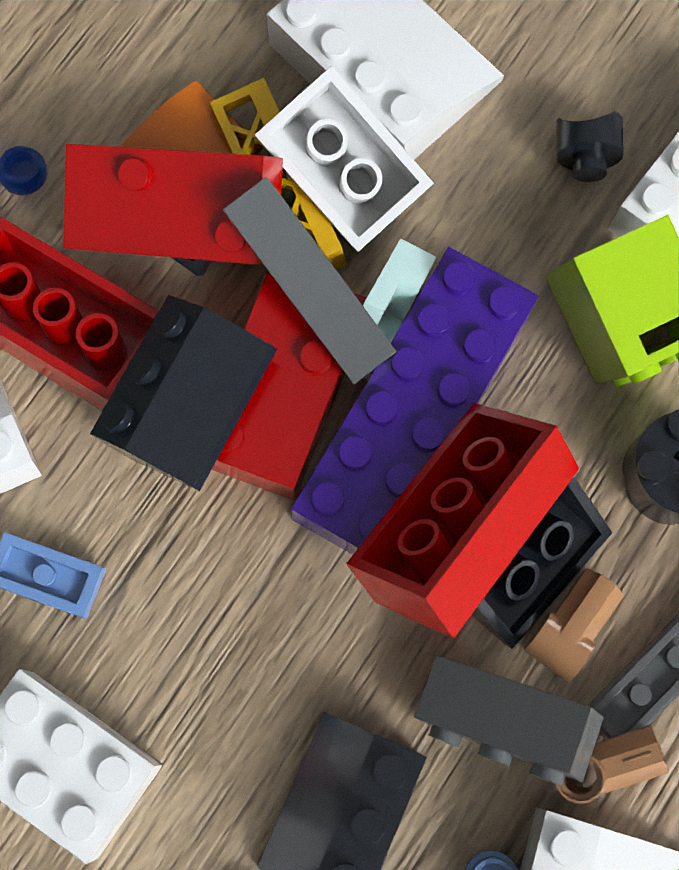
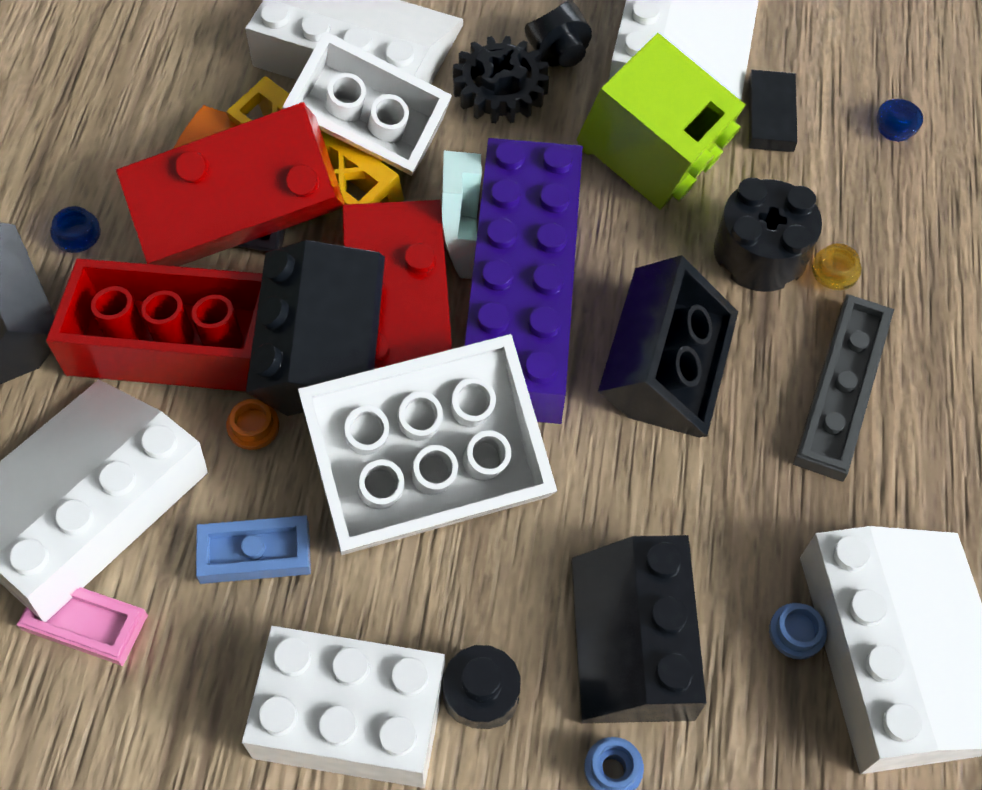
camera: 25 degrees left, 15 degrees down
(94, 455) = (252, 424): none -> orange plate
(181, 800) = (481, 687): none -> black piece
(229, 560) = (426, 443): none -> white slope
(309, 280) = (387, 188): dark grey tile -> none
(464, 517) = (615, 324): red brick -> none
(508, 151) = (504, 77): none -> black gear
(509, 720) = (740, 475): dark grey brick -> none
(567, 635) = (748, 398): medium nougat piece -> none
(620, 763) = (847, 478): medium nougat piece -> none

